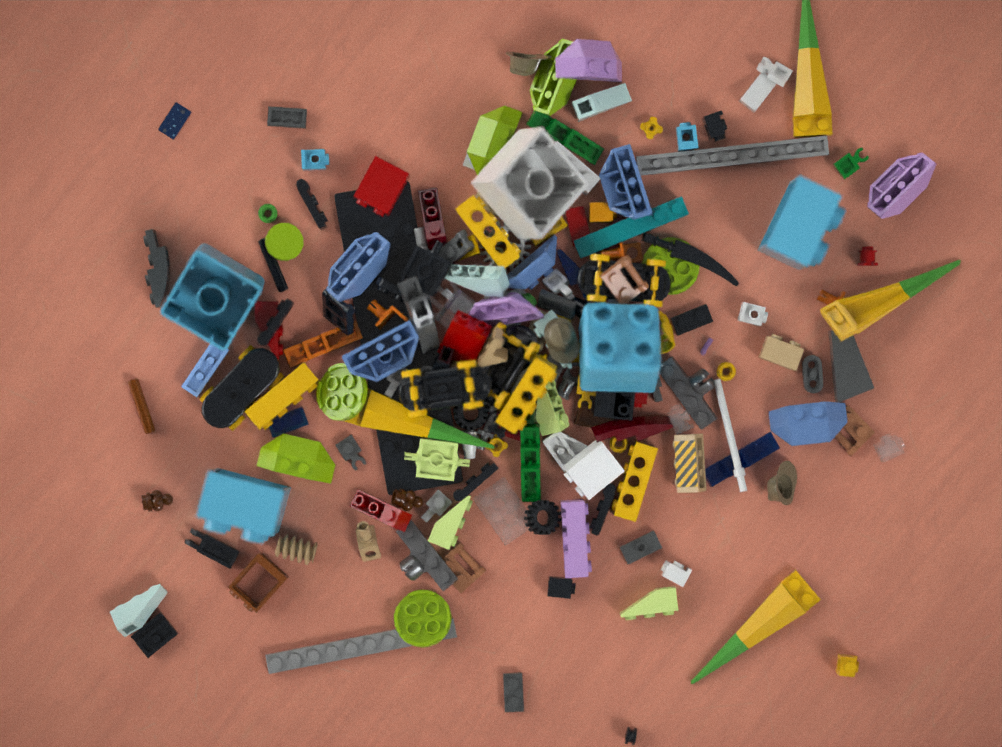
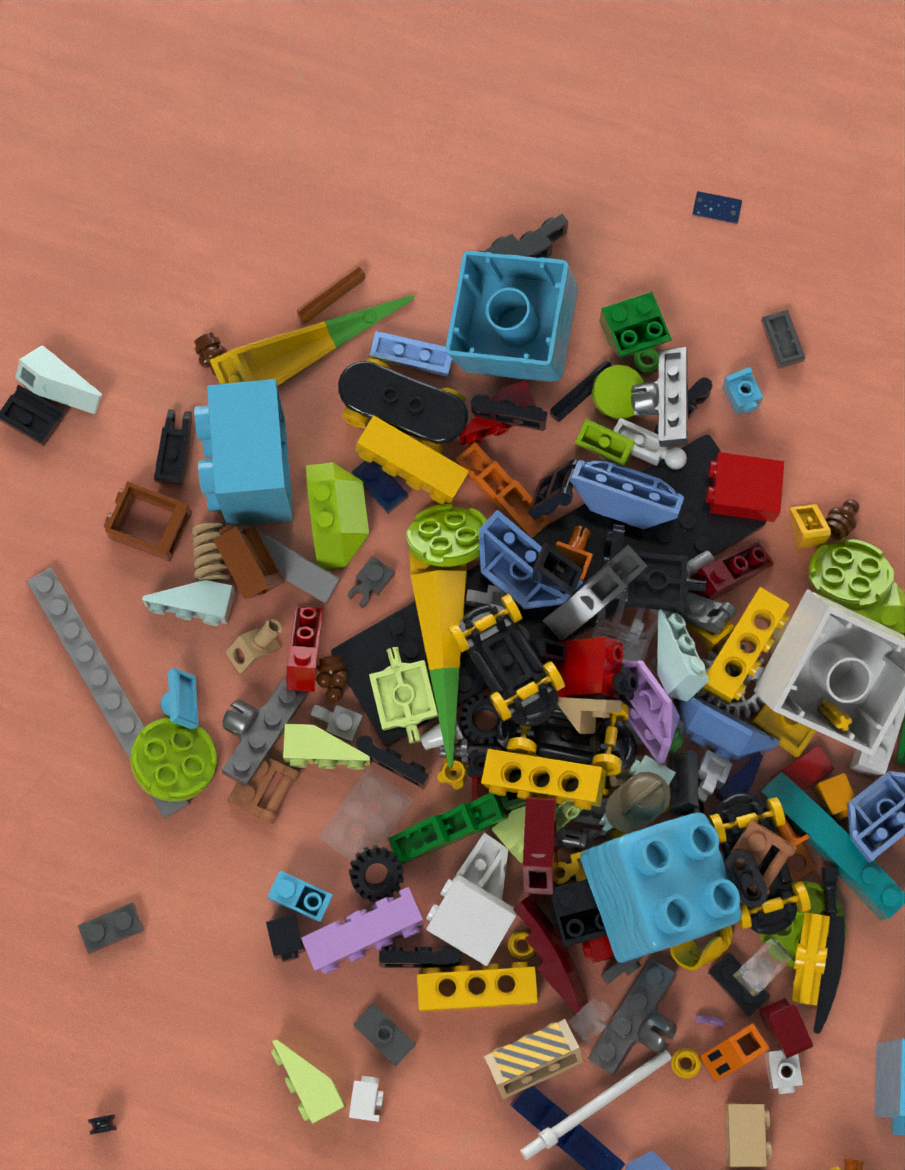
camera: 70 degrees right, 15 degrees down
(177, 469) = (293, 351): none -> yellow plate
(243, 213) = (634, 325): none -> green slope
(303, 213) = (666, 397): none -> plate
(312, 527) = (248, 559): none -> dark orange window
(317, 265) = (605, 442): none -> lime slope
(319, 502) = (301, 570): none -> light grey tile
(323, 566) = (200, 600): none -> light aqua slope
(327, 239) = (648, 446): none -> white plate
(386, 600) = (181, 699): none -> medium azure tile
(398, 334) = (556, 570): none -> black slope
(420, 155) = (809, 526): none -> yellow slope
(425, 131) = (842, 519): none -> reddish brown piece
(464, 143) = (851, 573): none -> lime tile
(485, 319) = (625, 683): none -> black plate
(539, 569) = (299, 896): none -> medium azure slope
(555, 195) = (834, 715): none -> yellow axle
(568, 412) = (540, 846): none -> dark red slope
(633, 294) = (746, 876): none -> black plate
(687, 302) = (763, 966): none -> clear slope
(694, 271) = (810, 958): none -> yellow piece
(729, 303) = (786, 1027): none -> dark red slope
(731, 340) = (734, 1052): none -> orange slope

